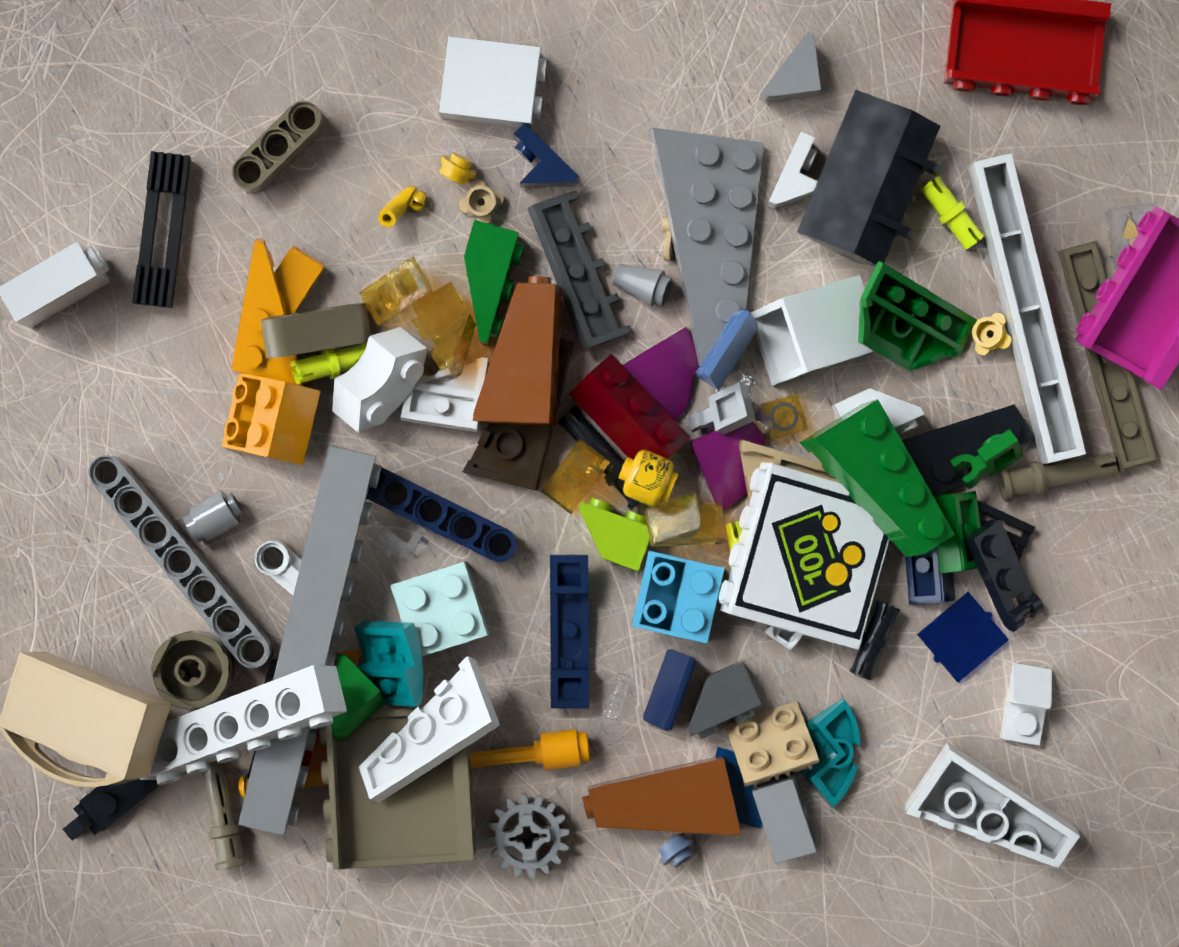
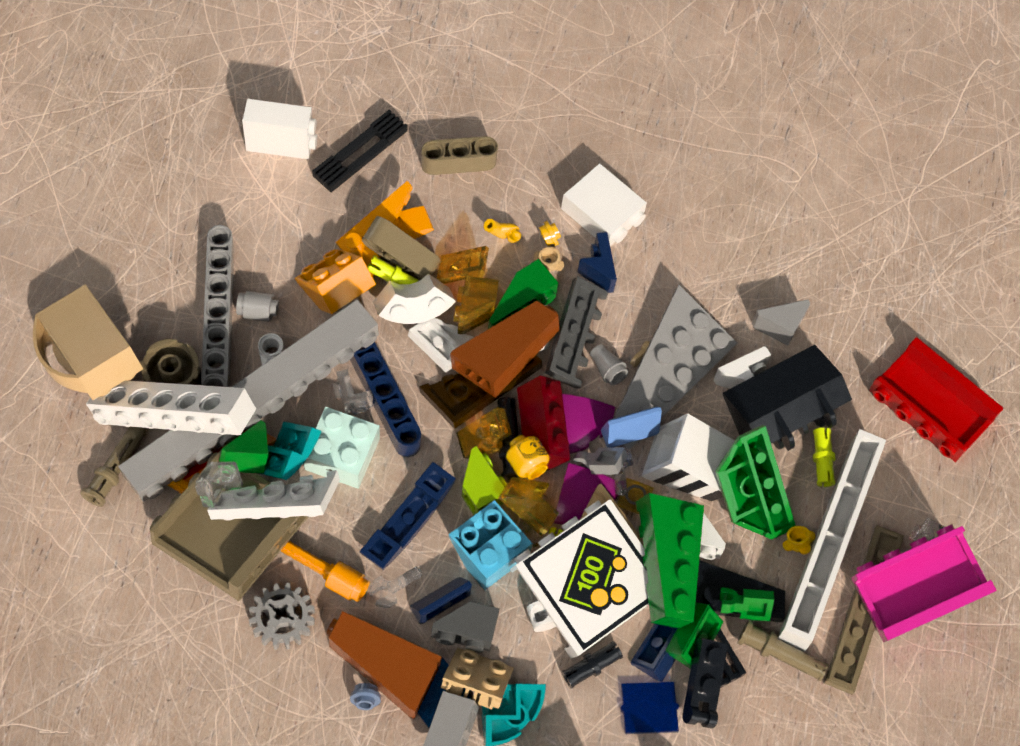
camera: 25 degrees right, 25 degrees down
(106, 805) = (57, 412): black hinge -> none
(350, 765) = (215, 480): none -> clear bracket

